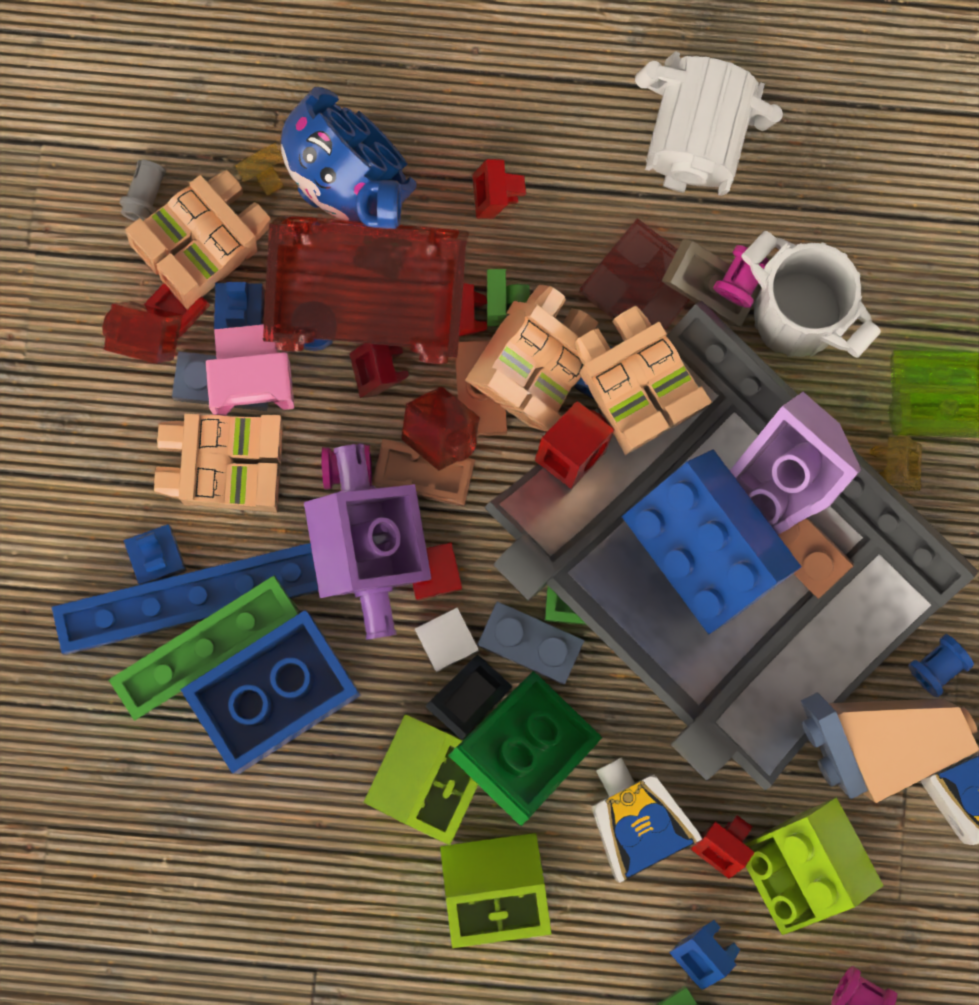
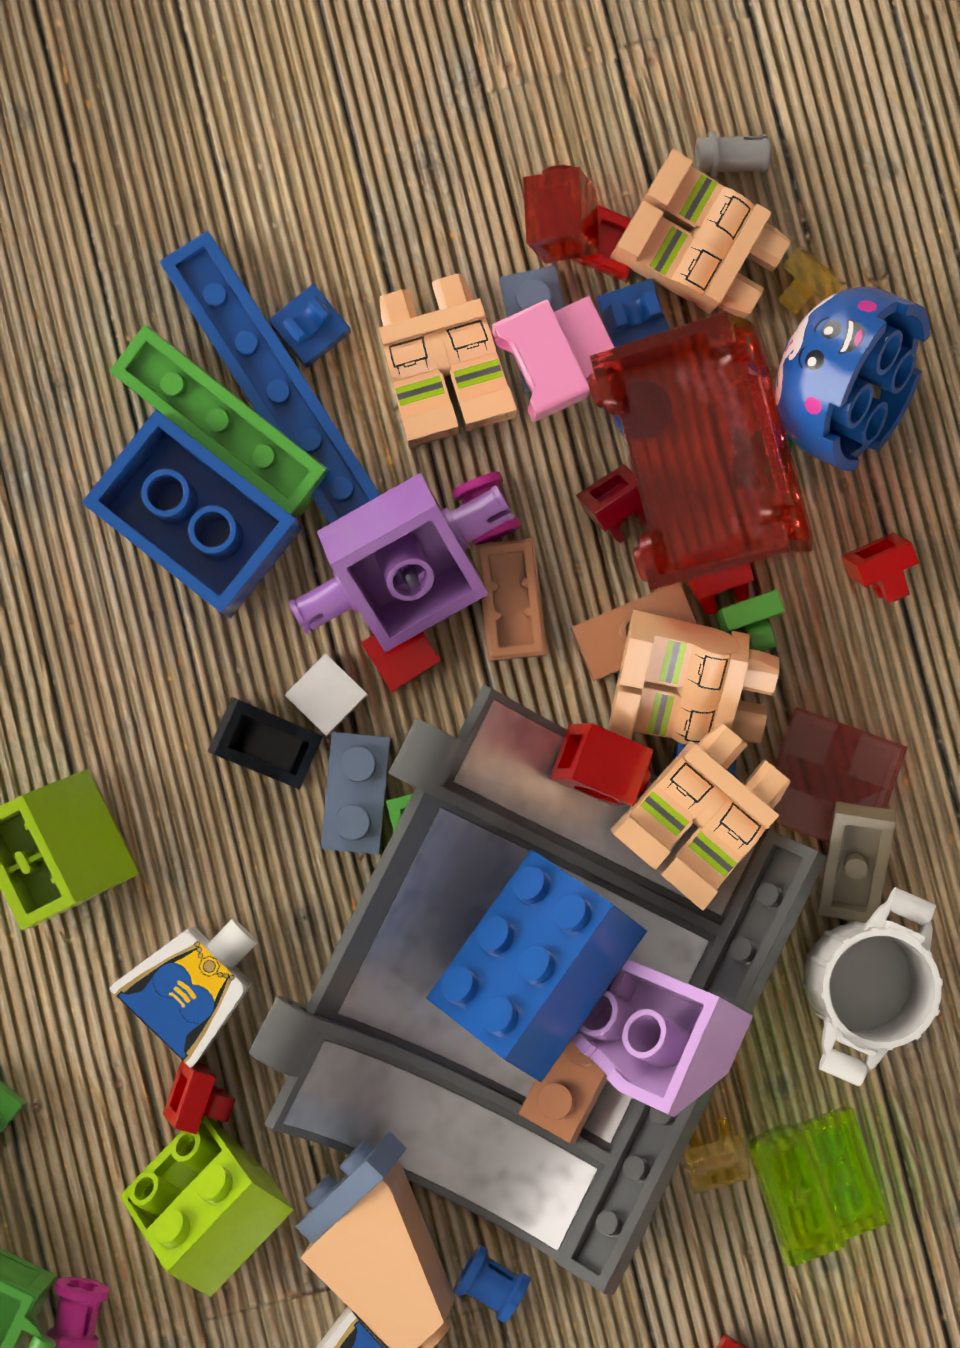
camera: 75 degrees right, 5 degrees up
(388, 204) = (807, 443): blue tile -> none
(422, 782) = (154, 729): lime slope -> none
(440, 428) = (567, 601): clear red brick -> none
(526, 747) = (225, 829): green tile -> none
(703, 956) = (61, 1113): blue tile -> none
(739, 281) = (865, 893): dark pink bush -> none

